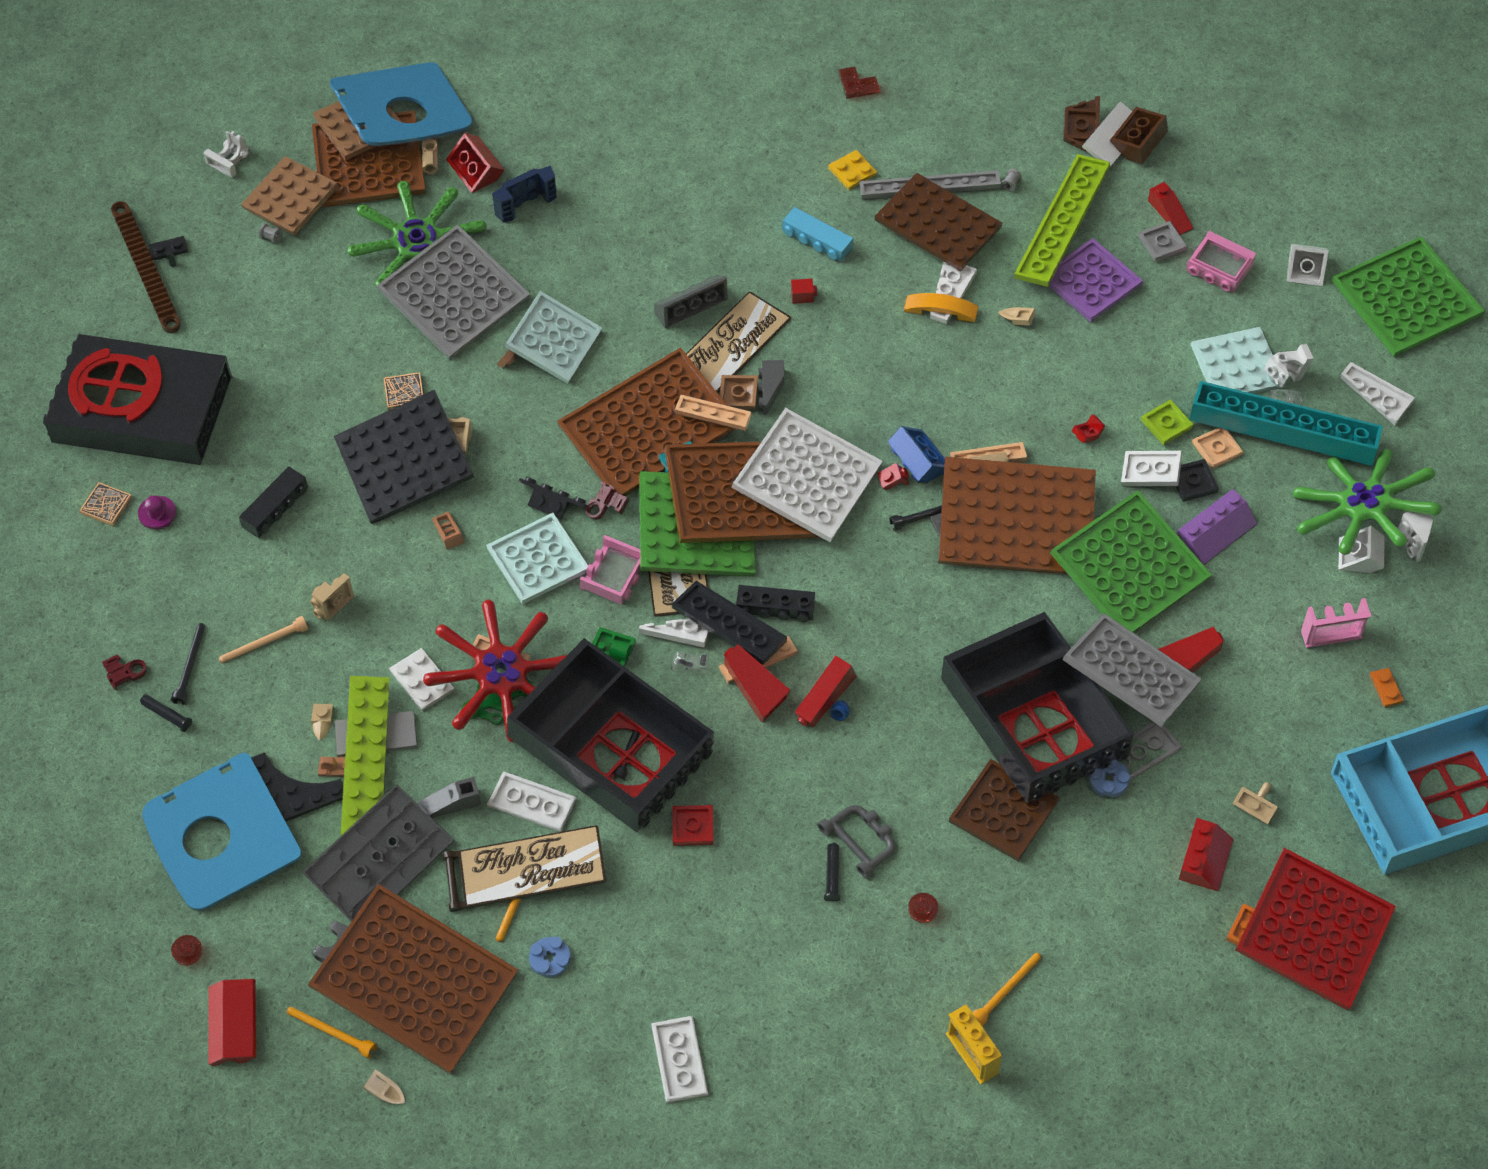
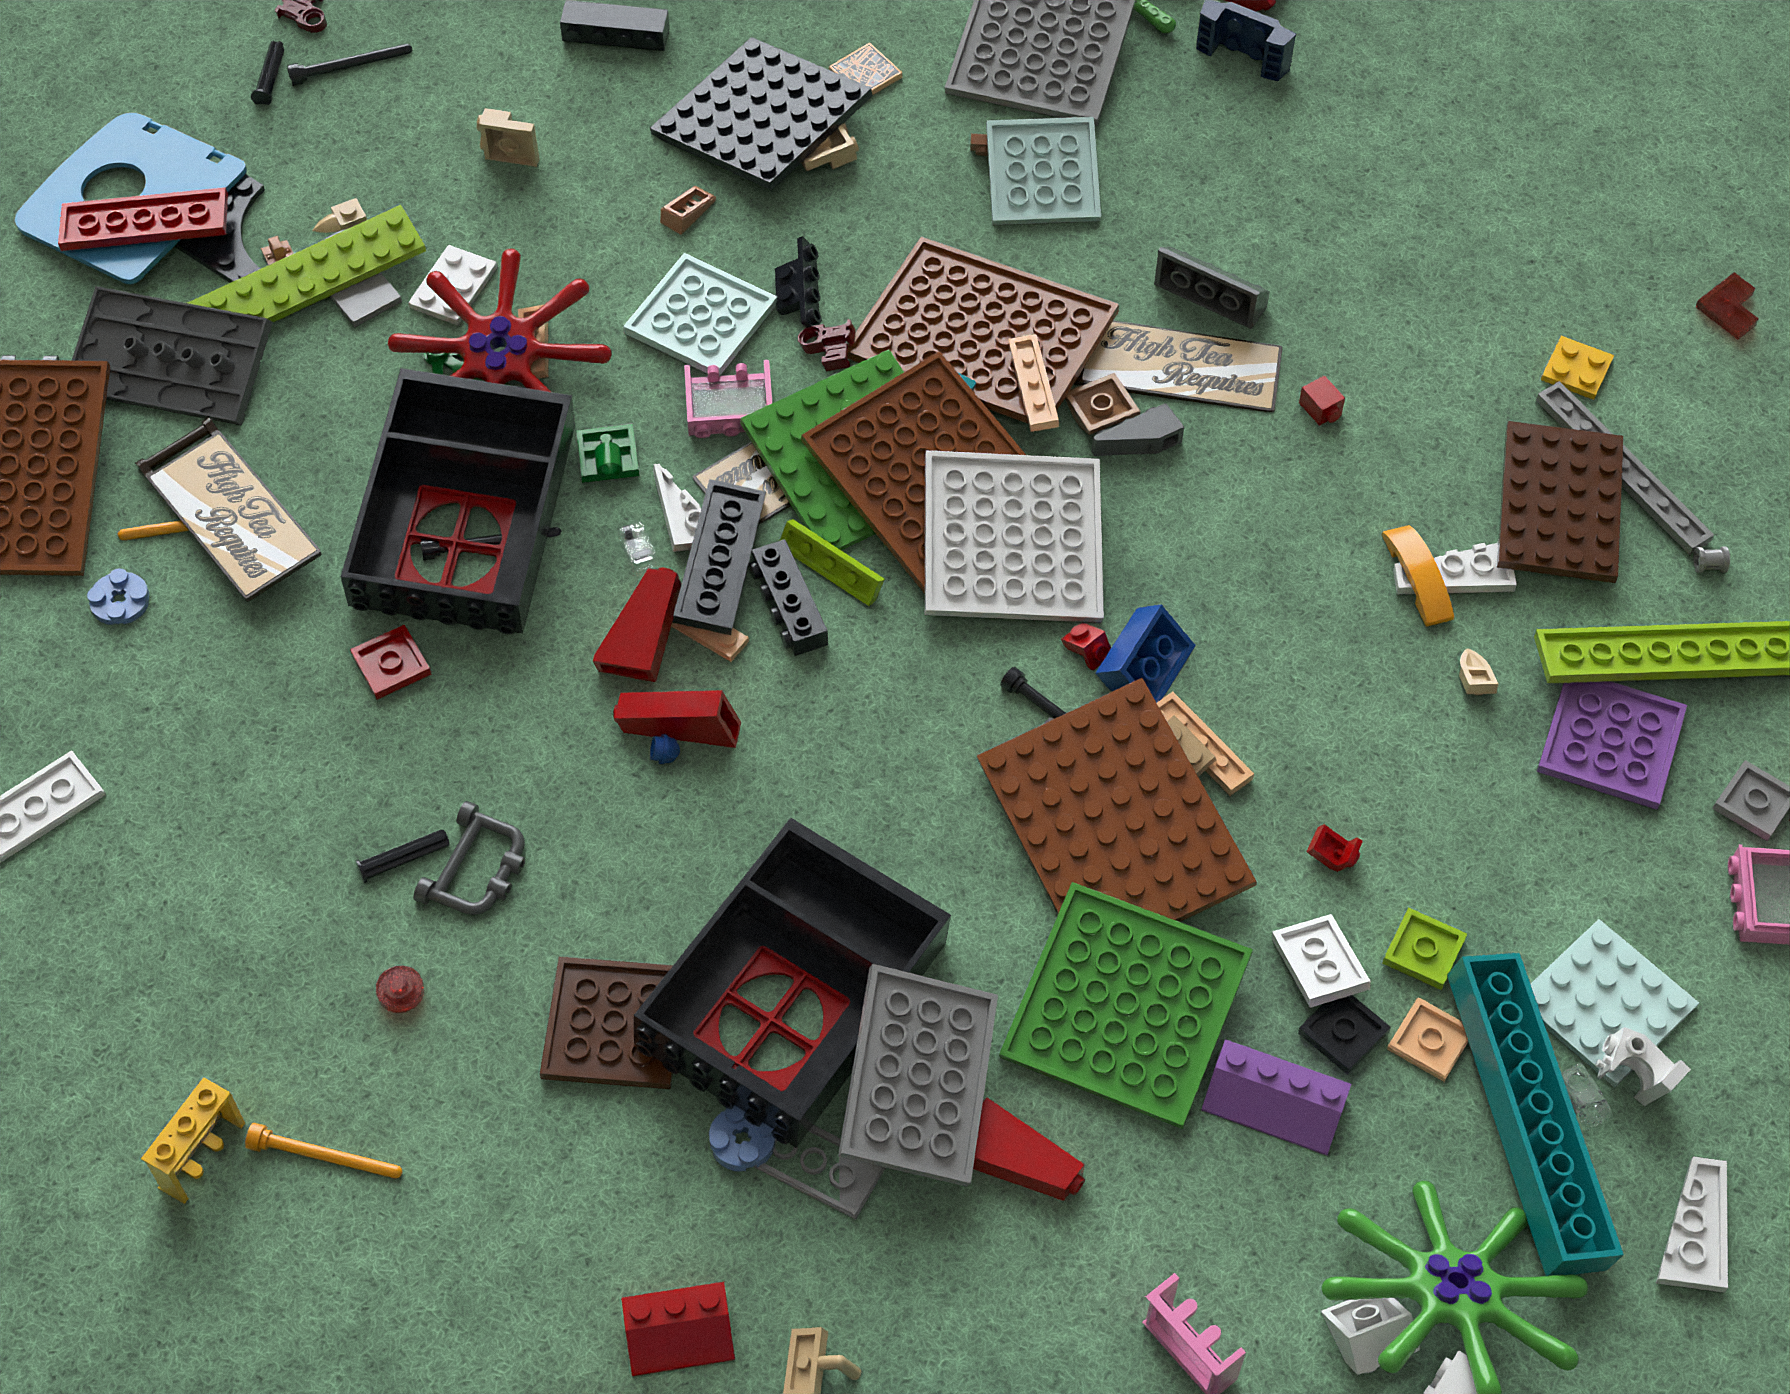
camera: 60 degrees right, 0 degrees up
(257, 827) = (143, 219): none -> red plate
(298, 625) = (456, 131): light nougat piece -> none
(452, 798) = (292, 392): dark grey slope -> none
(531, 801) = (335, 475): white tile -> none
(764, 571) = (832, 563): none -> lime plate
(817, 234) = (1429, 375): medium azure brick -> none

